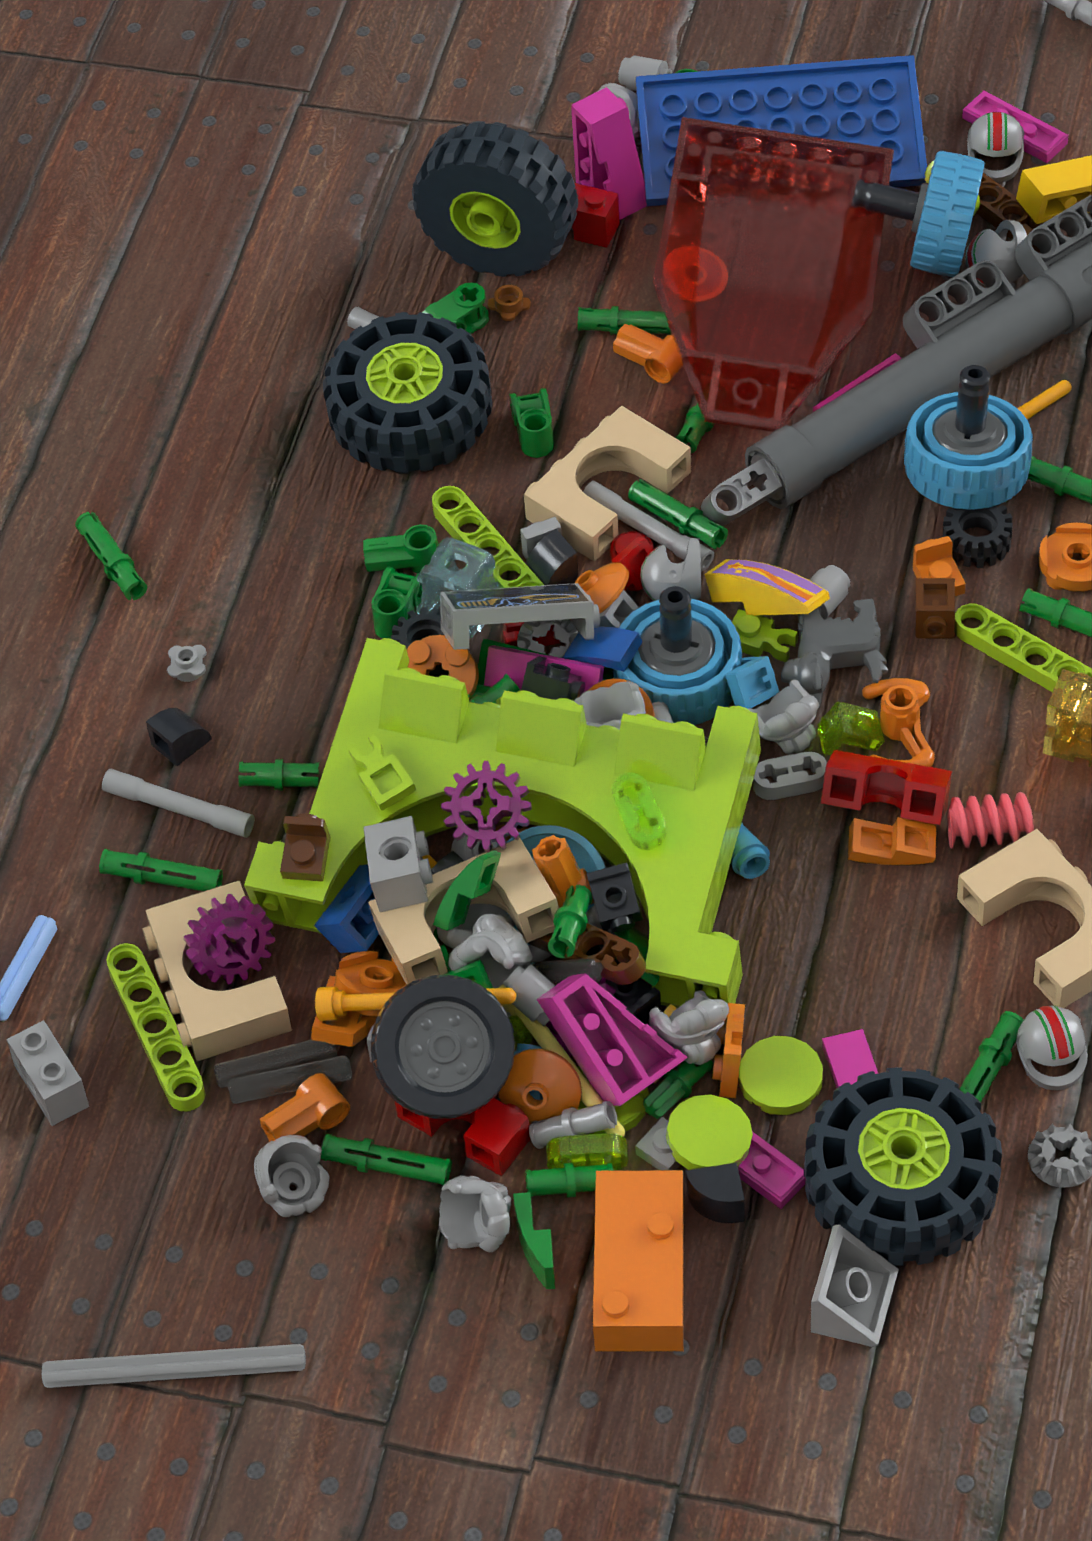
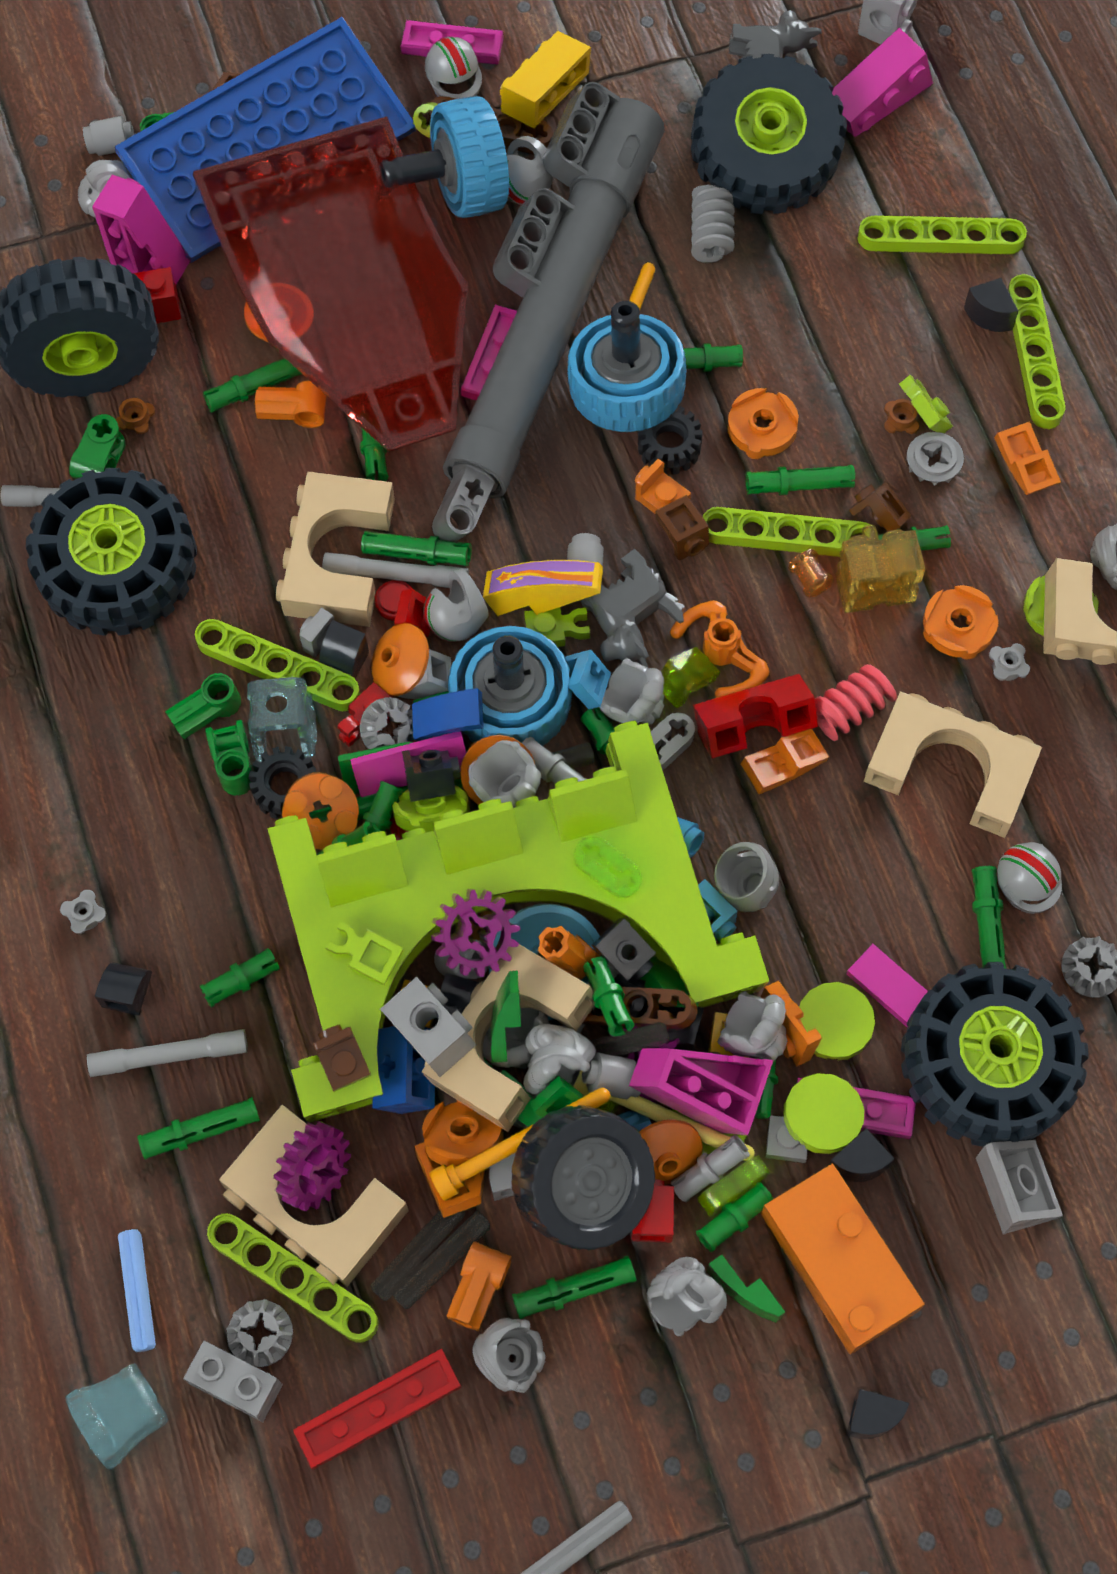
camera: 35 degrees left, 15 degrees up
(98, 1068) = (271, 1347): none -> light grey gear
(151, 1161) = (376, 1409): none -> red plate
(515, 605) = (356, 721): light grey panel -> none
(533, 422) = (229, 517): green piece -> none
(576, 1402) = (874, 1415): none -> black brick
(733, 921) = (718, 910): none -> dark azure bracket
(776, 914) = (746, 878): none -> light grey helmet
(1029, 700) = (810, 573): none -> clear orange bush

